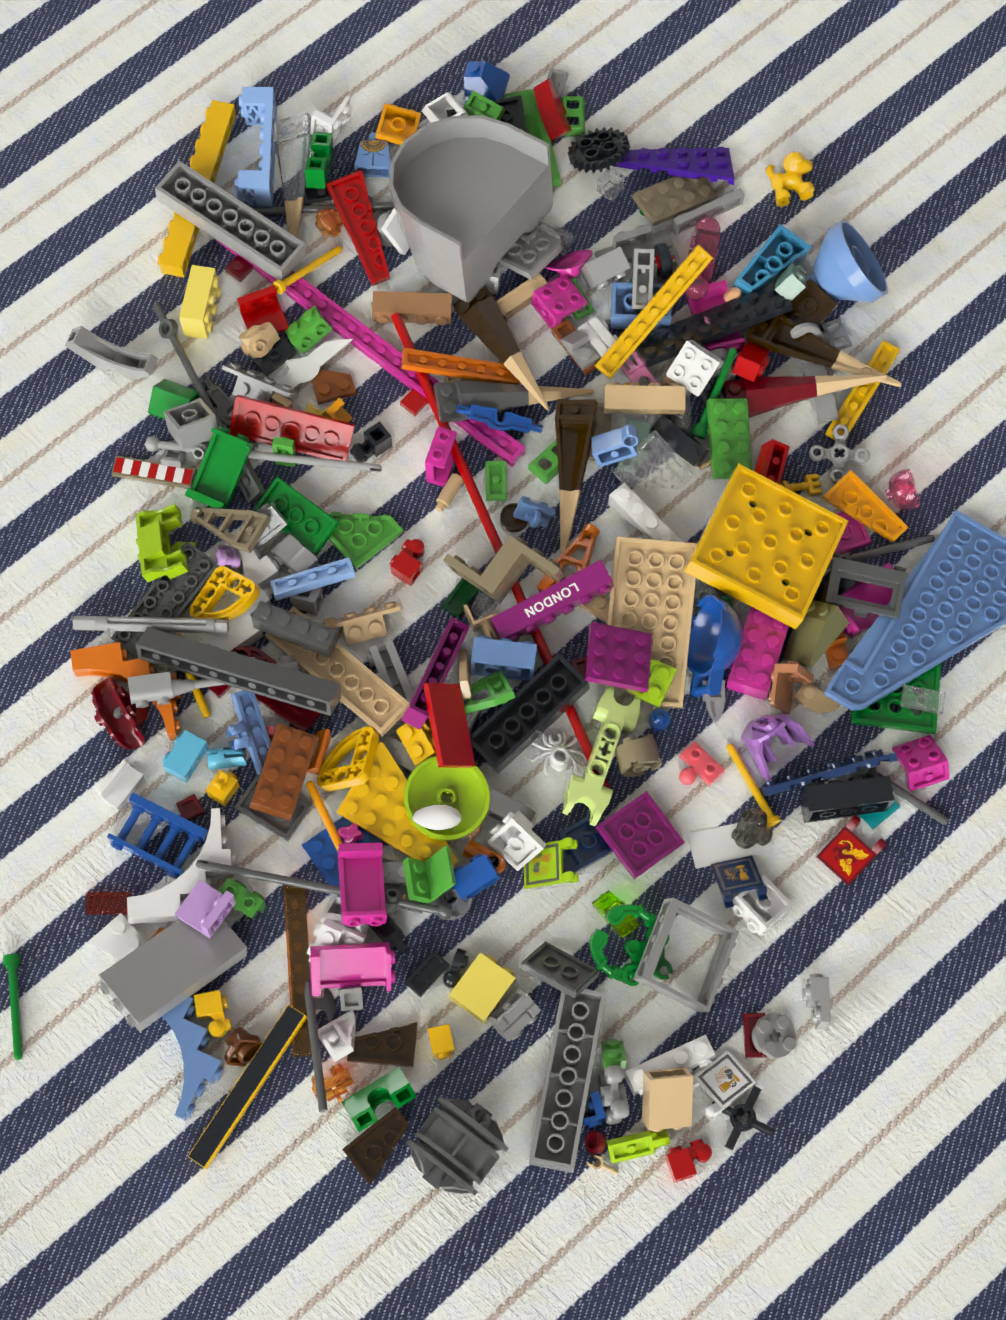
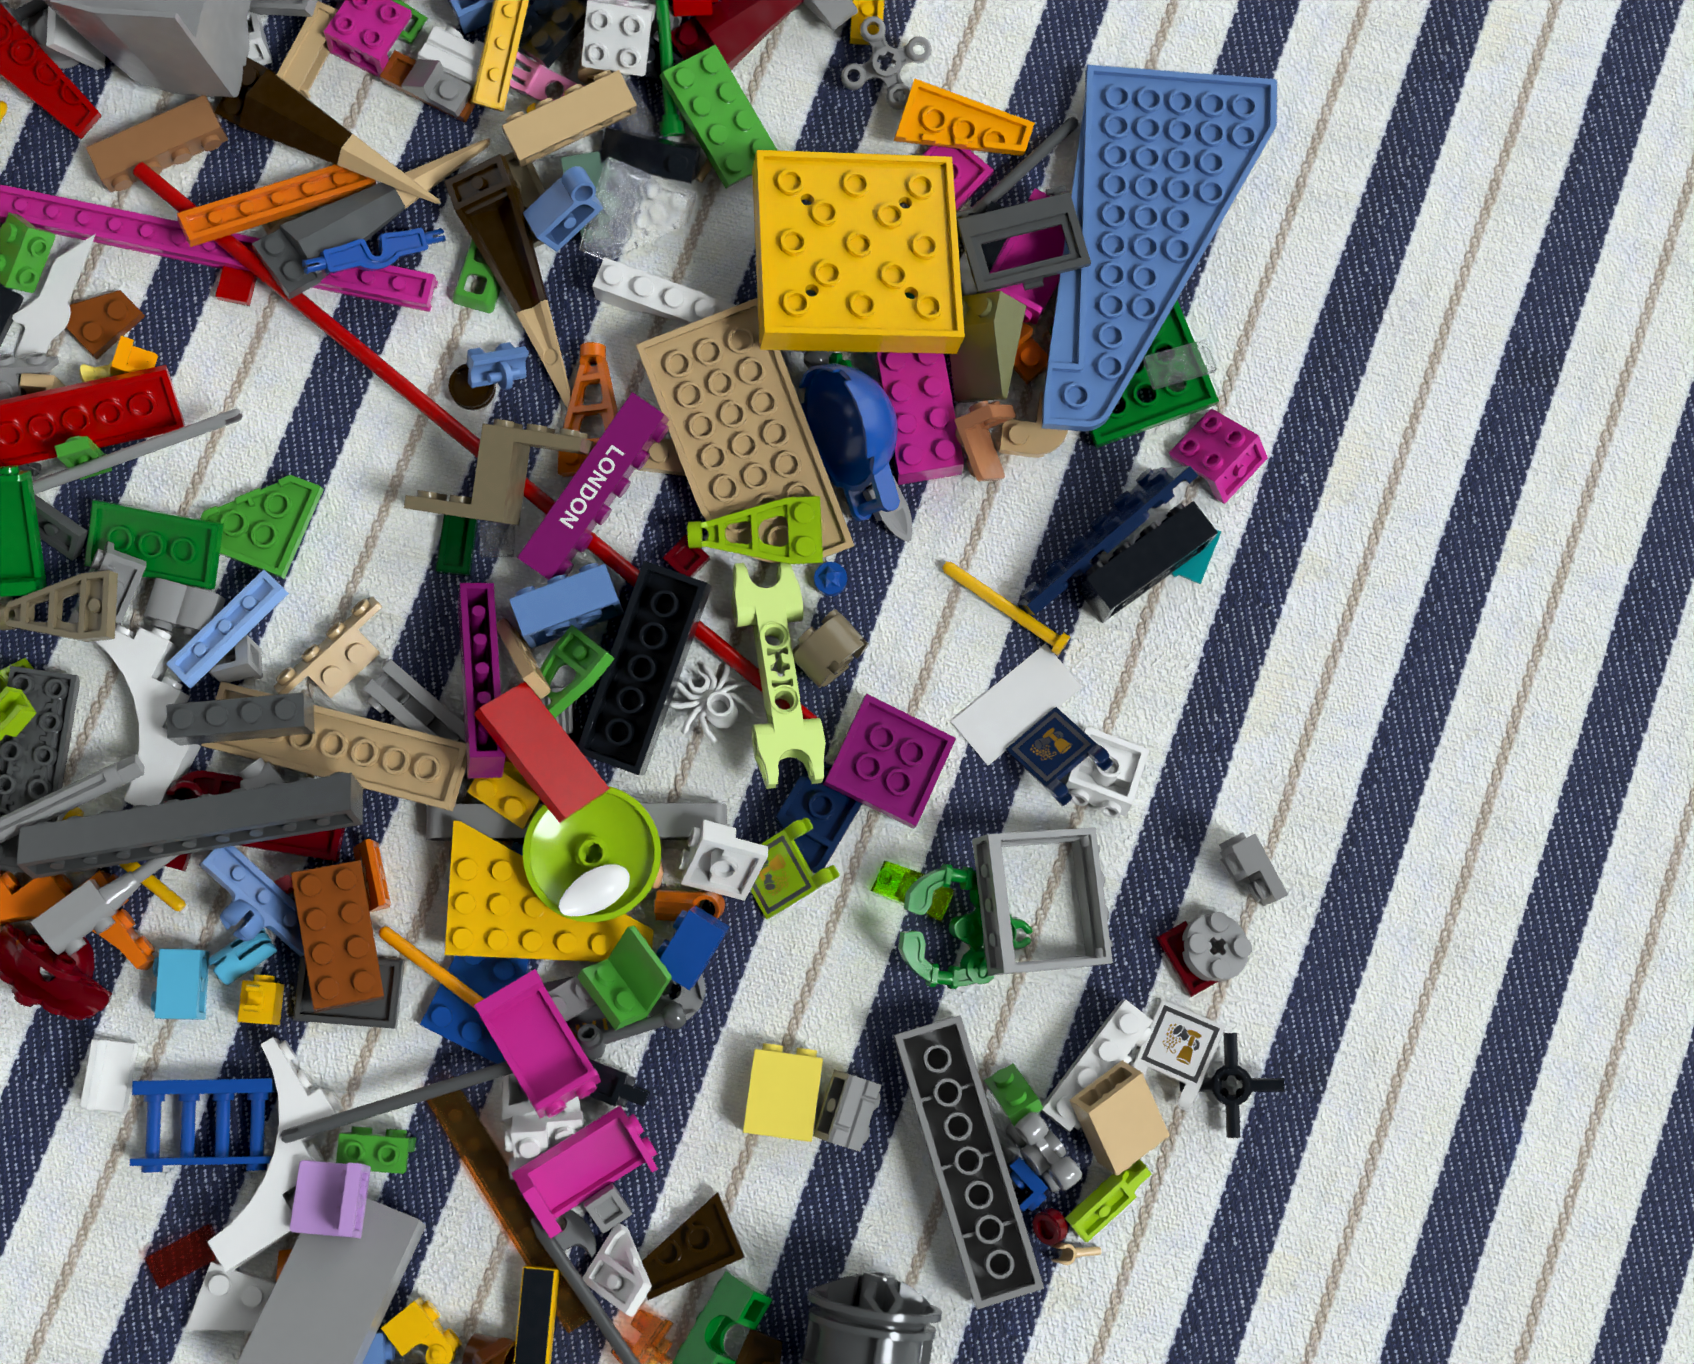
camera: 30 degrees left, 10 degrees up
(190, 807) = (229, 1055): dark red tile -> none
(224, 584) = (102, 699): yellow beam -> none
(228, 556) = (84, 657): lavender plate -> none
(350, 834) = (482, 976): dark pink piece -> none
(359, 771) = (432, 830): yellow beam -> none
(375, 443) = (211, 375): black brick -> none
(405, 565) = (350, 537): red brick -> none
(427, 974) = (694, 1115): black plate -> none
(439, 457) = (318, 355): dark pink panel -> none
(441, 1042) = (766, 1202): yellow brick -> none
(449, 492) = (358, 396): tan cylinder -> none
(460, 961) = (733, 1102): black plate -> none
(484, 623) = (511, 567): tan bracket -> none
(495, 480) = (417, 345): bright green plate -> none
(560, 969) = (878, 1014): dark grey tile -> none
(618, 657) = (730, 522): magenta plate -> none
(681, 1160) = (1179, 1188): red brick -> none
(700, 764) = (921, 614): coral plate -> none
(752, 829) = (1039, 672): clear smoke plate -> none
(760, 731) = (984, 520): medium lavender piece -> none
(772, 460) = (797, 120): red brick -> none
(808, 485) = (863, 130): yellow hinge -> none
(848, 854) = (1184, 636): flag -> none
(903, 491) = (1001, 73): clear pink cylinder -> none
(913, 800) = (1234, 514): dark grey bar -> none

